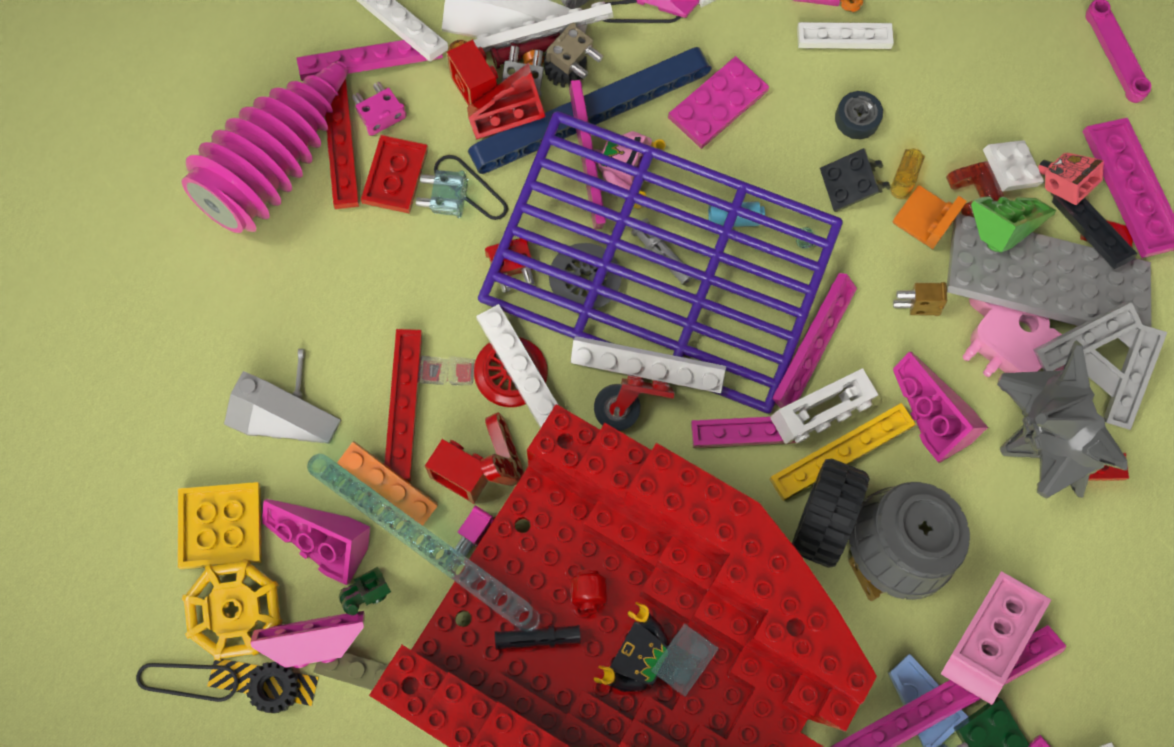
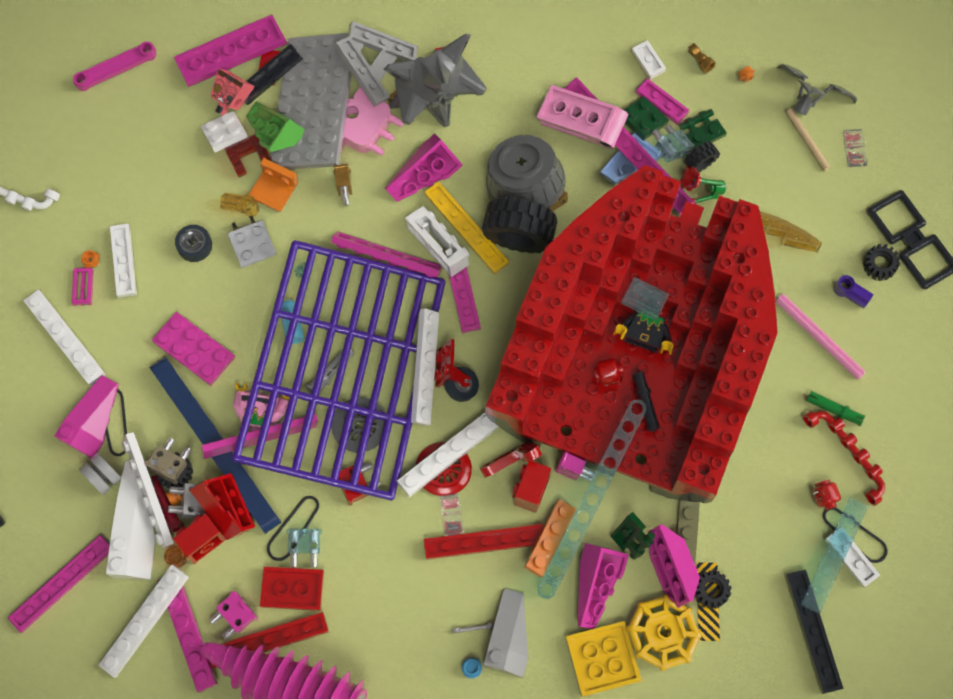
camera: 95 degrees left, 0 degrees up
(191, 666) = (709, 657): black piece -> none
(251, 363) = (471, 668): none -> dark azure plate

